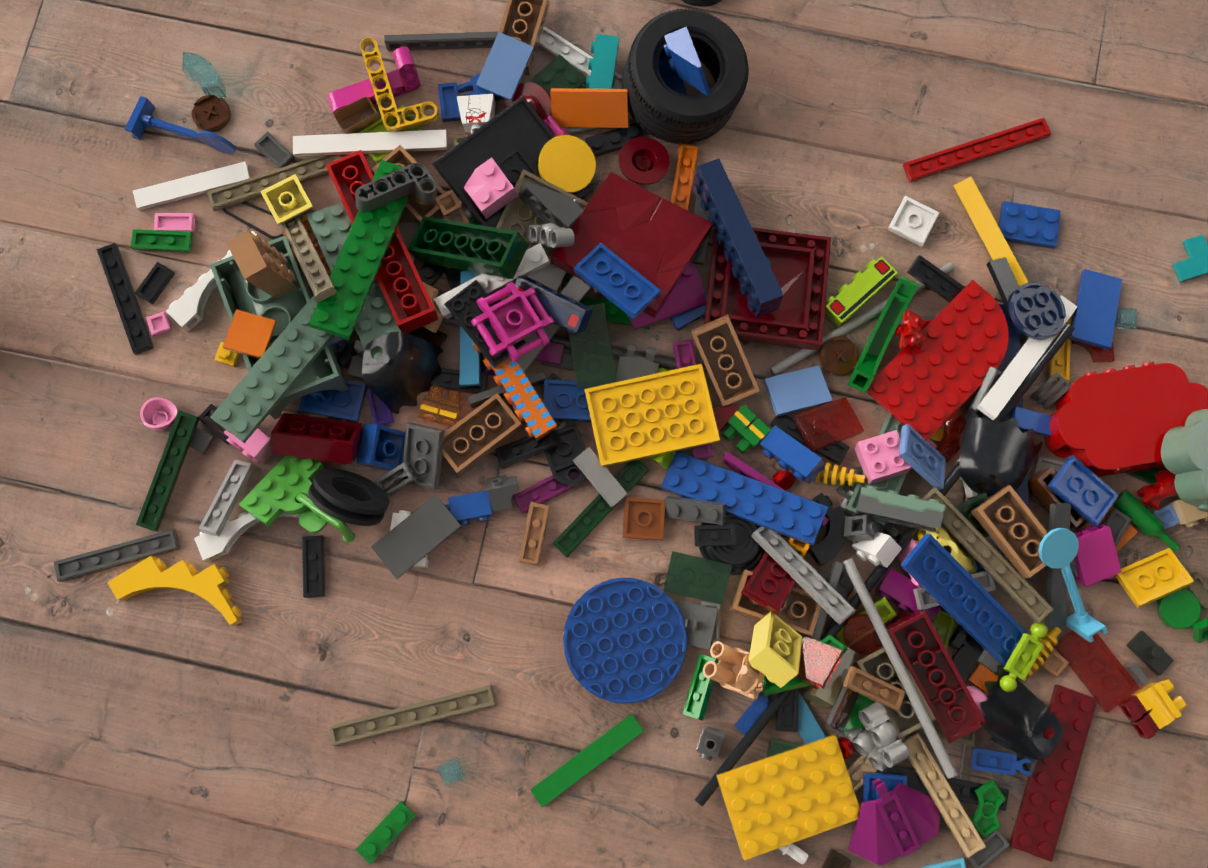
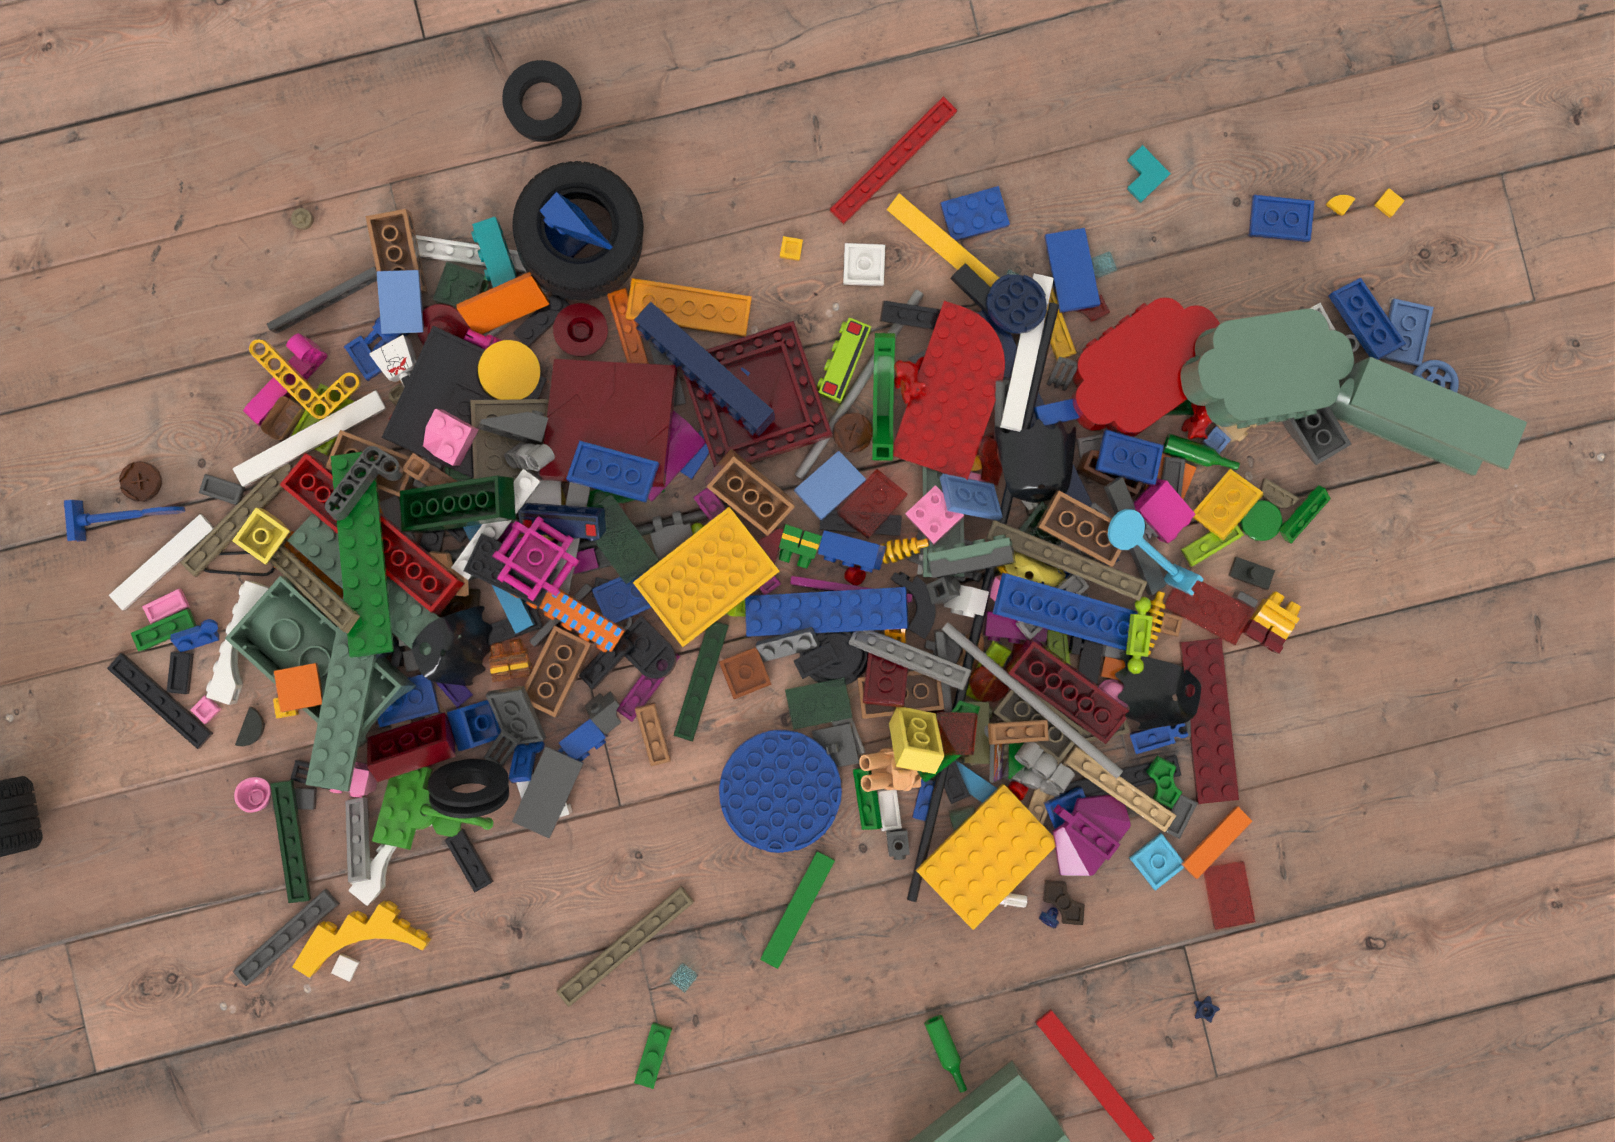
camera: 25 degrees left, 10 degrees up
(153, 608) = (345, 967): none -> white tile
(186, 258) = (196, 636): none -> blue hinge
(188, 359) = (251, 729): none -> pearl dark grey tile
(203, 72) = (116, 447): clear light blue brick -> none
(262, 264) = (277, 623): medium nougat brick -> none
(409, 499) = (523, 761): none -> blue hinge
(600, 477) = (686, 656): light grey tile -> none
(716, 708) = (889, 809): none -> white tile
(754, 191) = (692, 306): none -> light orange tile
(855, 180) = (791, 248): none -> yellow tile
(1120, 607) = (1208, 545): none -> lime tile

